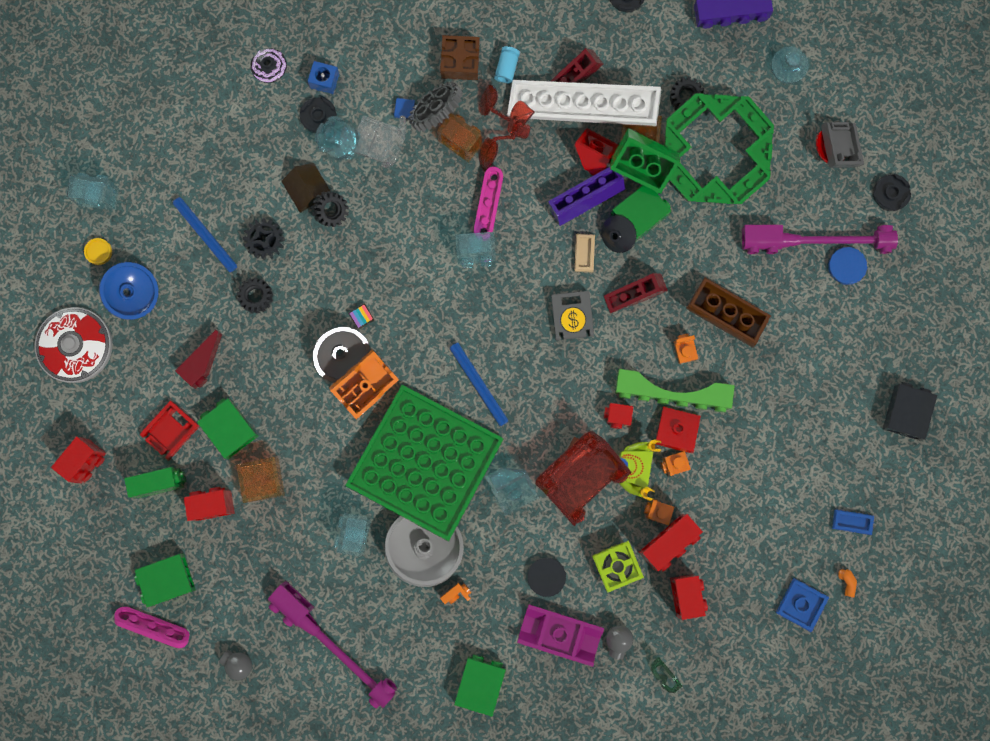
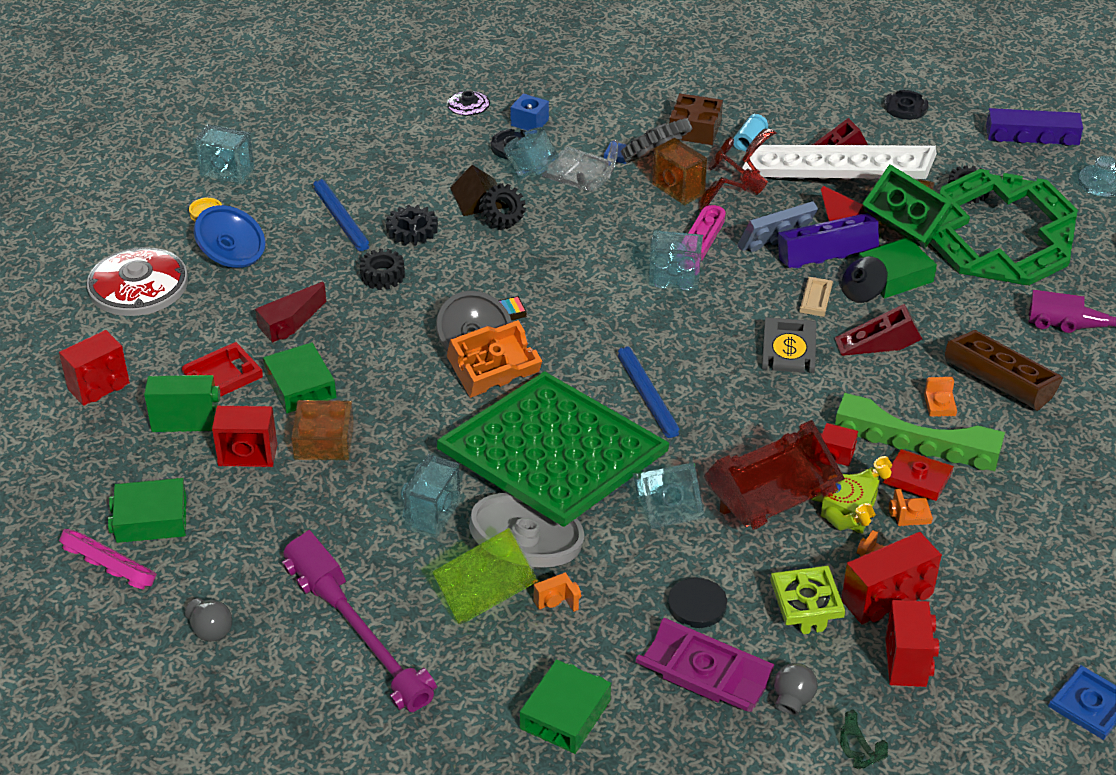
camera: 10 degrees right, 40 degrees down
(407, 601) = (485, 576): none -> clear neon green plate
(547, 191) = (766, 228): none -> sand blue plate

